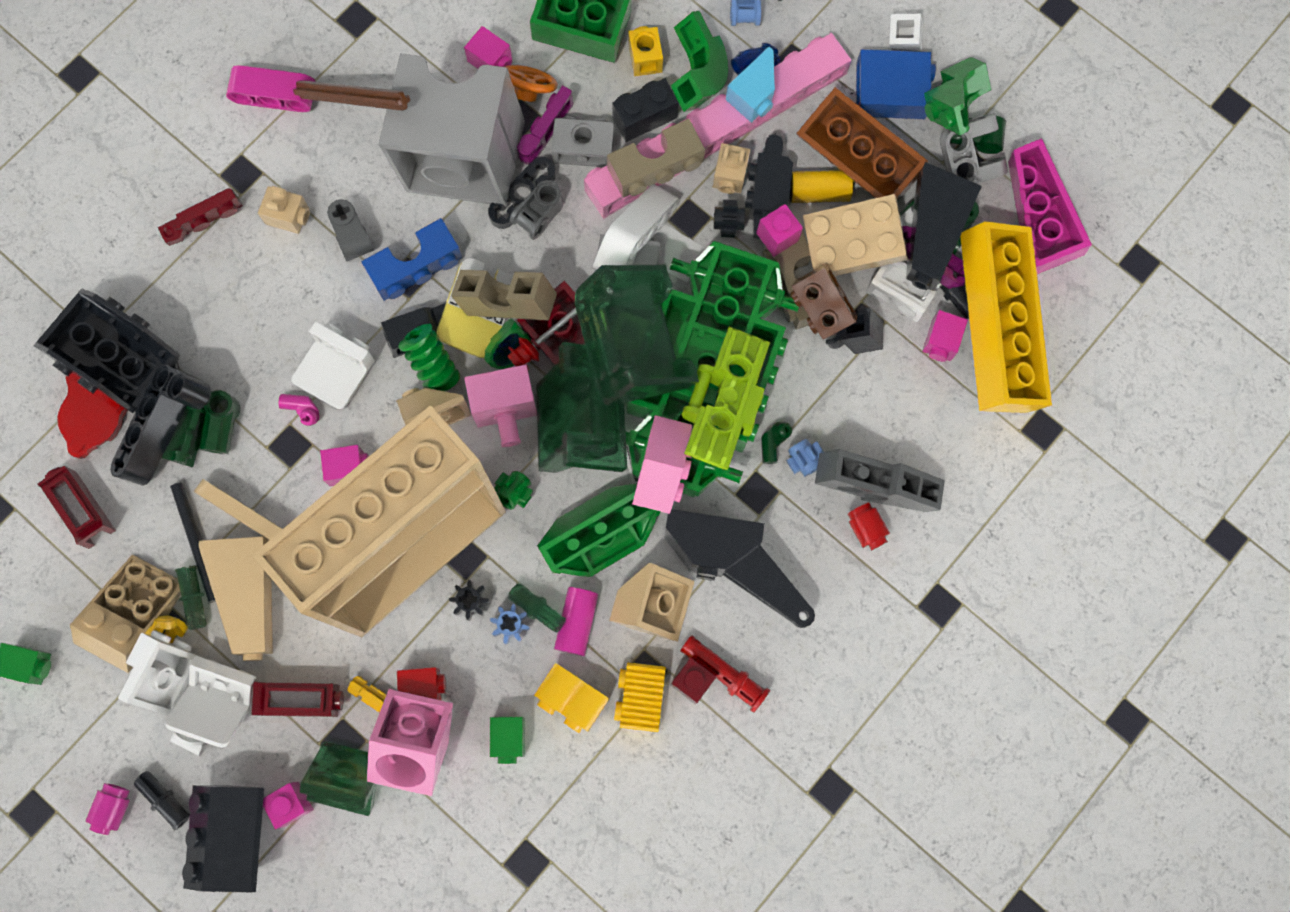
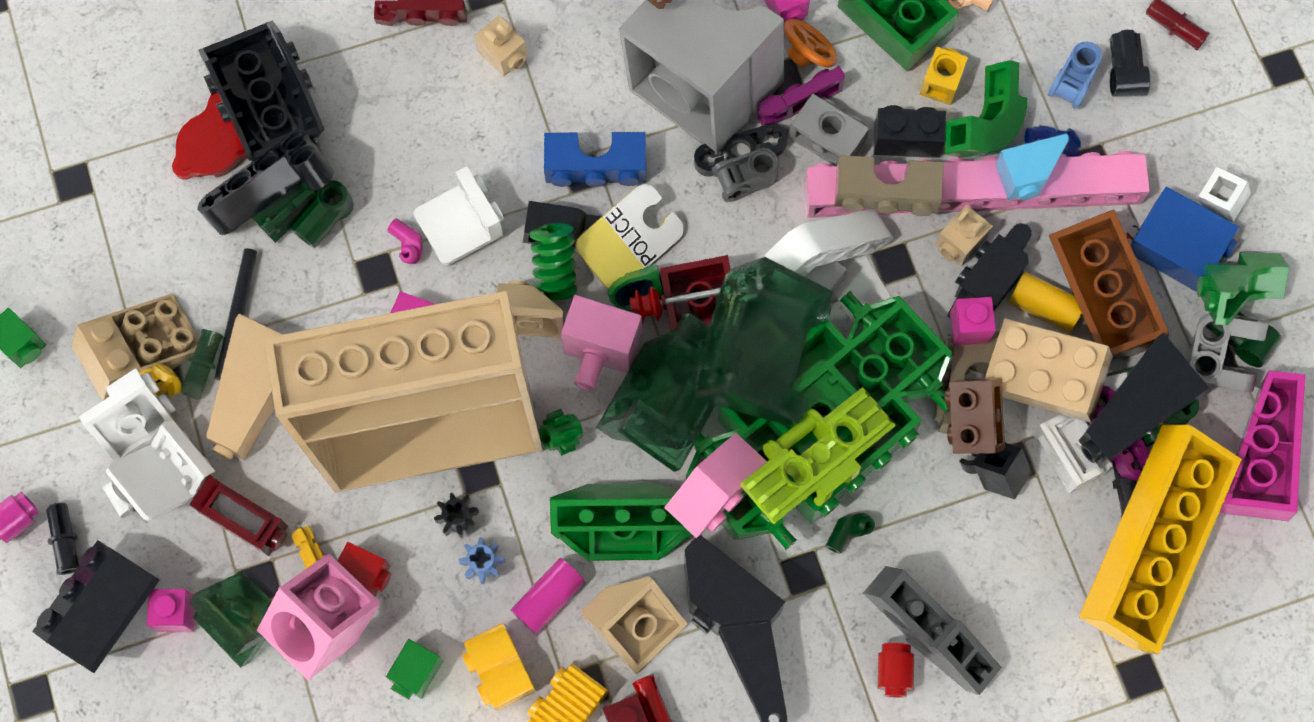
camera: 35 degrees right, 5 degrees down
(75, 505) = (148, 218): dark red window -> none
(237, 509) = (286, 295): tan beam -> none
(349, 232) = (551, 101): dark grey piece -> none
(525, 298) = (677, 250): dark tan arch -> none
(536, 607) = (516, 559): clear green axle -> none
(729, 218) = (932, 283): black gear -> none
(804, 457) = (869, 562): medium blue gear -> none
(944, 336) = (1087, 522): dark pink brick -> none

